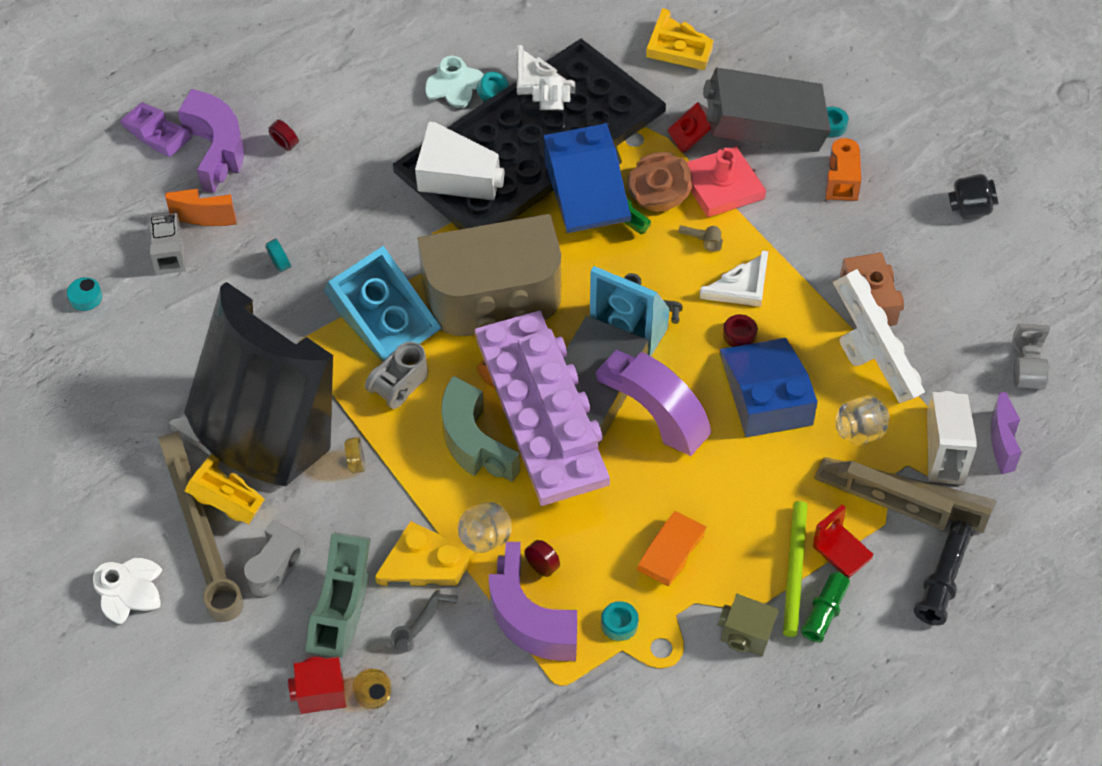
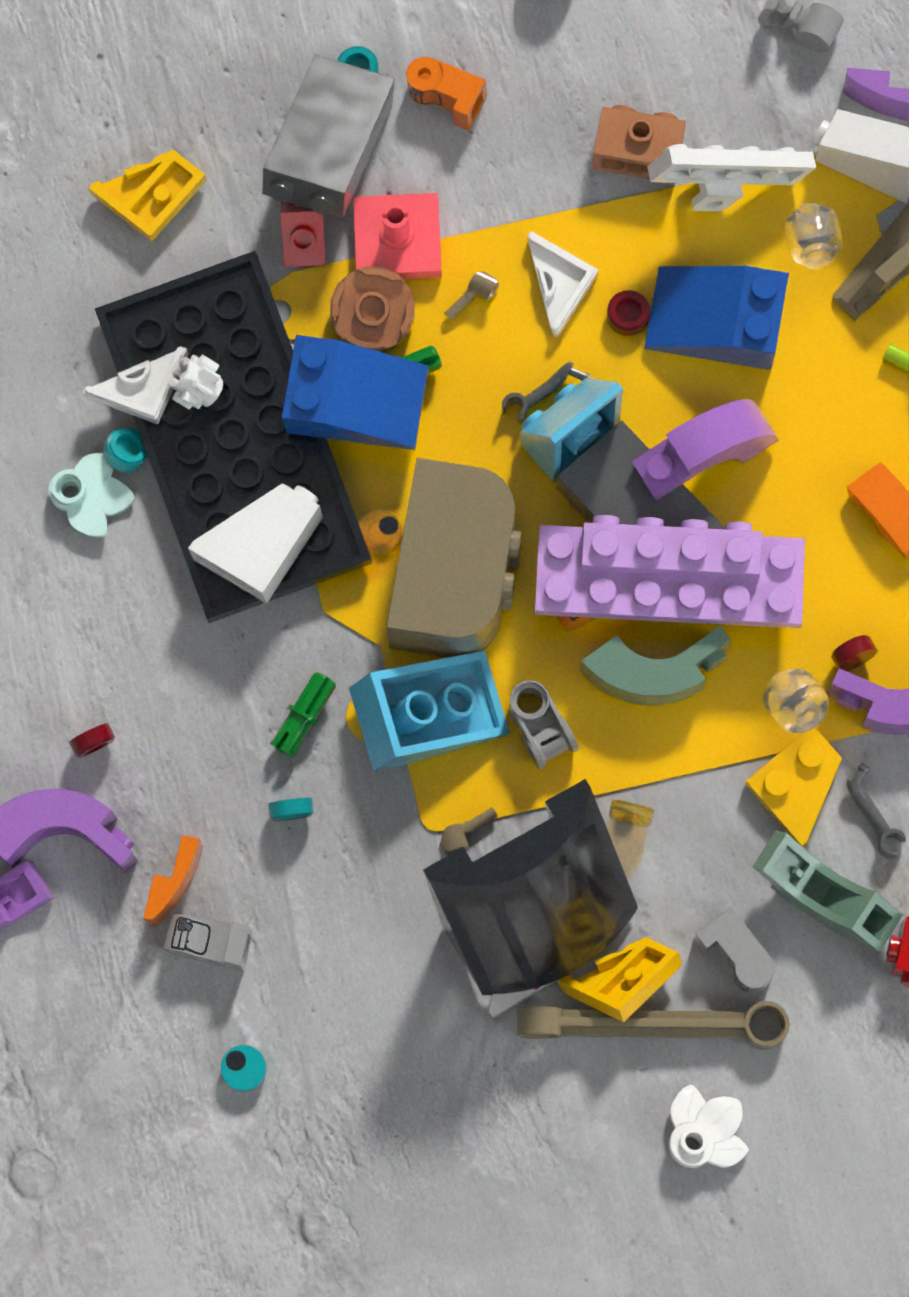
camera: 65 degrees left, 20 degrees up
(347, 241) = (303, 714): none -> green axle

